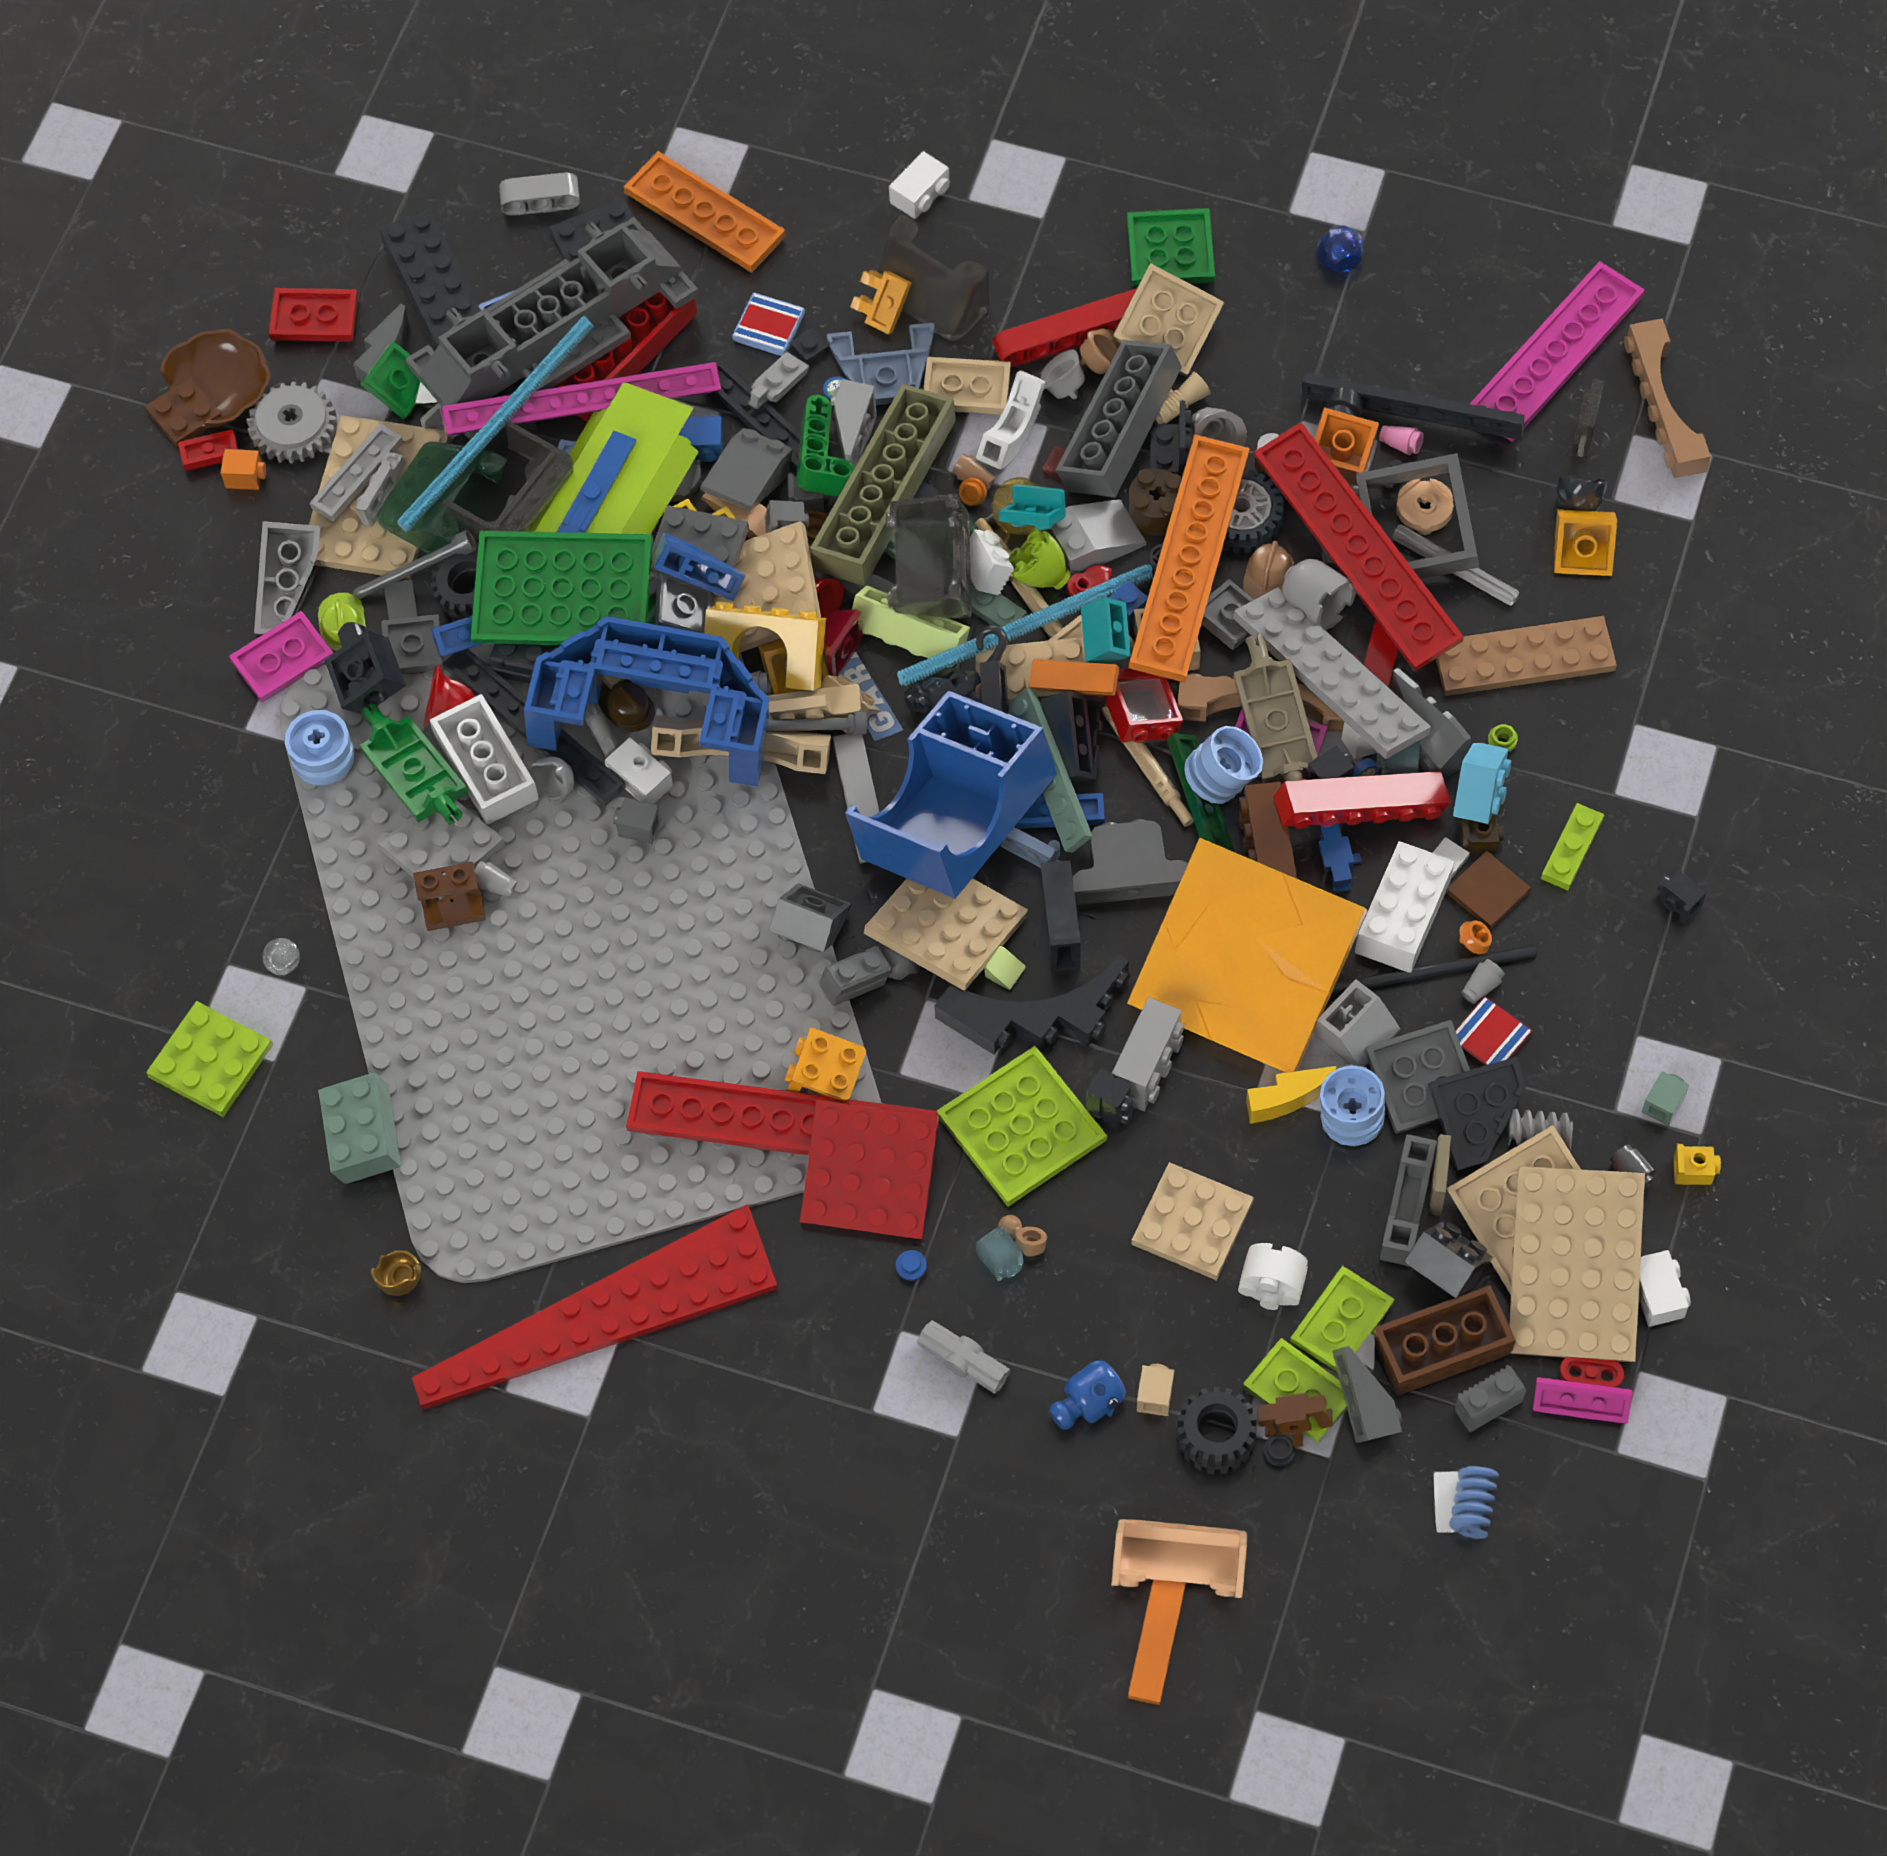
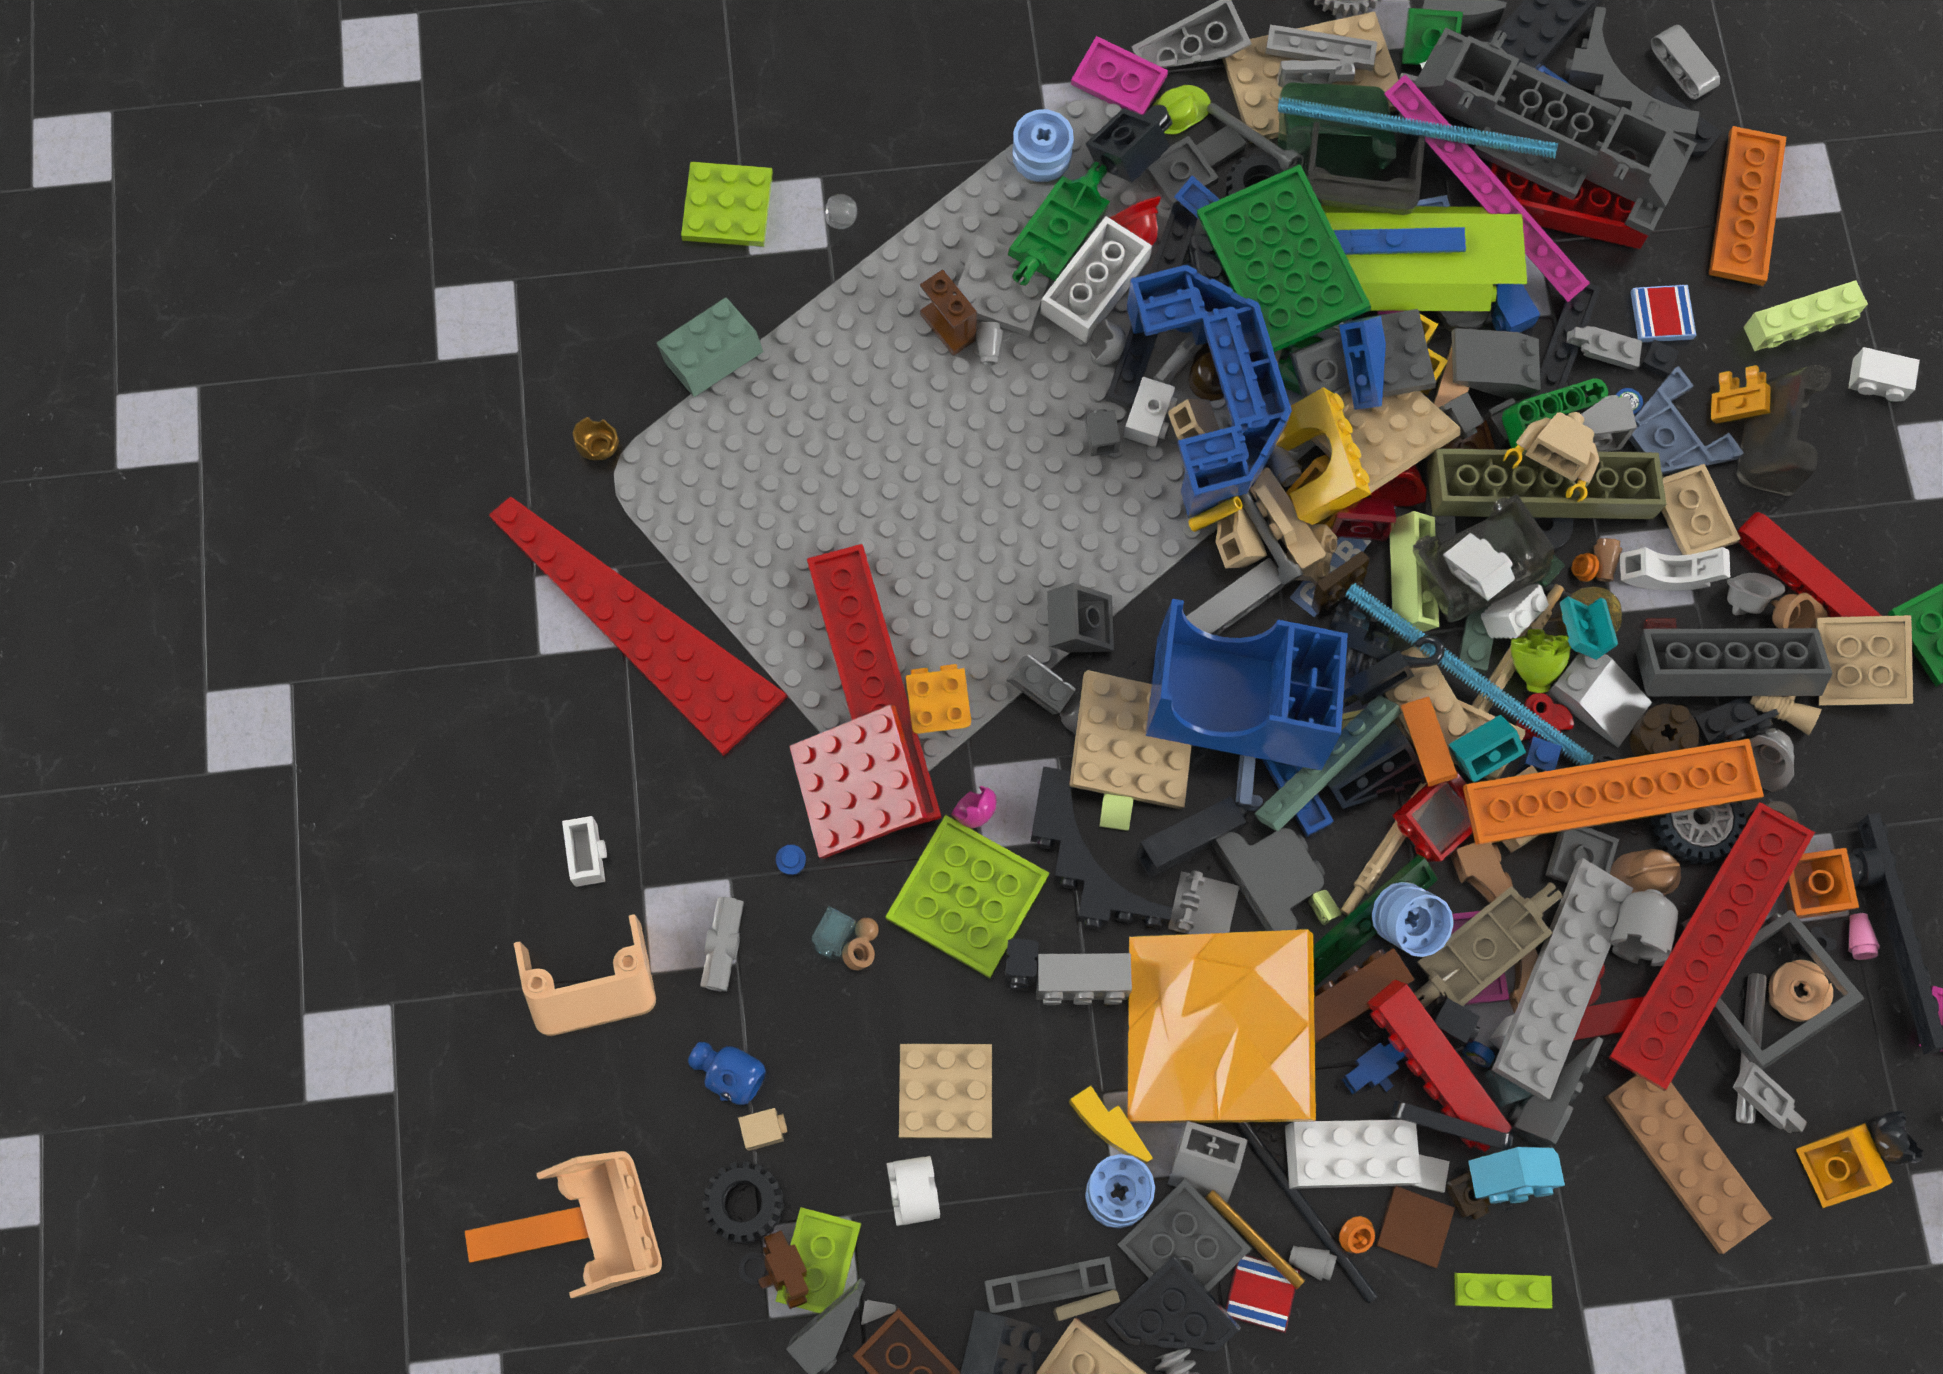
camera: 60 degrees right, 10 degrees up
(507, 265) = (1595, 70): none -> dark grey arch
(770, 758) = (1215, 513): none -> yellow piece
(814, 1441) = (584, 851): none -> white brick
(833, 217) = (1805, 316): none -> yellowish green brick
(864, 447) = (1563, 447): none -> tan torso
(890, 687) = (1334, 586): none -> dark brown plate
(939, 562) = (1480, 566): none -> white brick
(943, 1083) = (975, 808): none -> dark pink hair
(957, 1526) = (591, 1002): none -> light nougat windscreen
(1125, 933) = (1202, 905): none -> light grey hinge
(1176, 838) = (1324, 907): none -> yellowish green slope
(1342, 1317) = (906, 1272): lime plate -> none
(1419, 810) = (1452, 1126): none -> black beam
(1446, 1015) = (1254, 1239): none -> pearl gold bar
(1503, 731) = (1593, 1171): lime plate -> none
(1504, 568) = (1768, 1098): none -> light grey hinge

